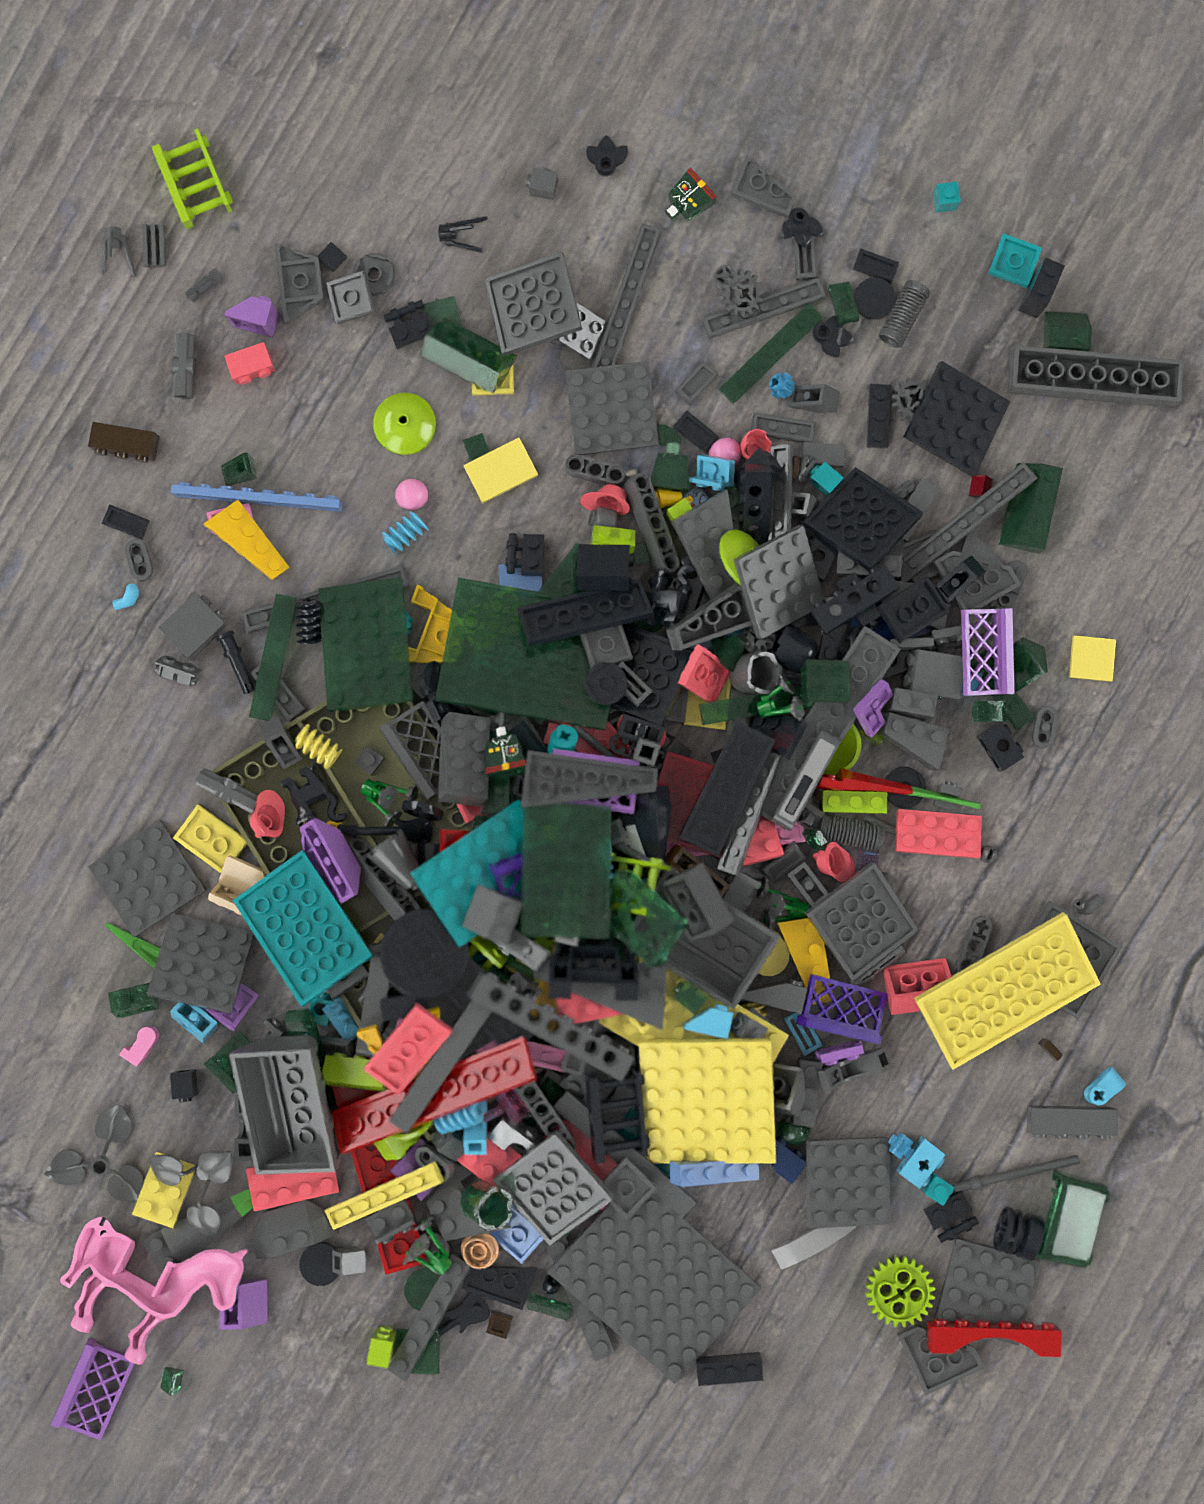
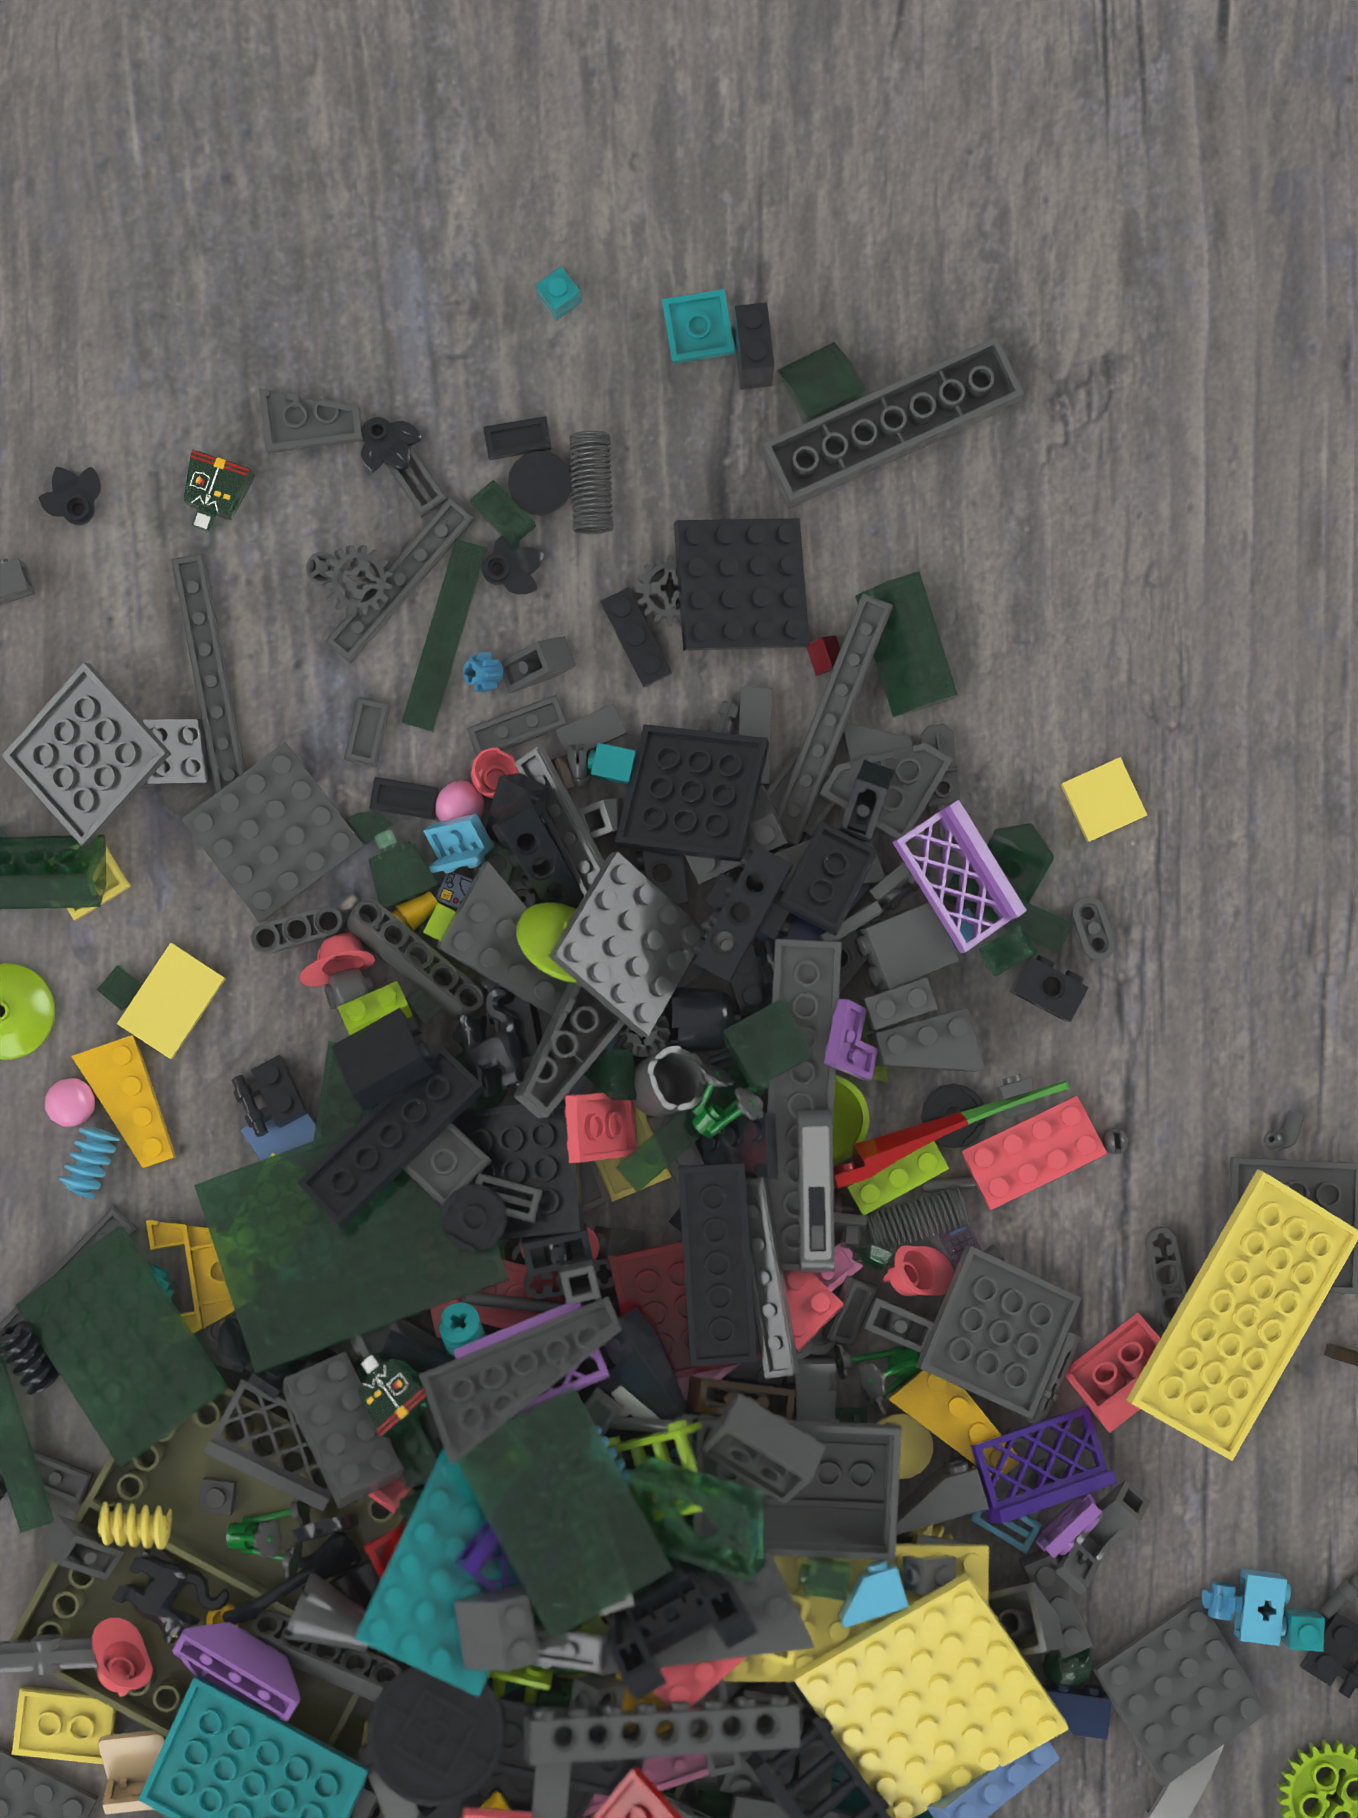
camera: 30 degrees left, 0 degrees up
(446, 506) = (126, 1092): none -> yellow wing

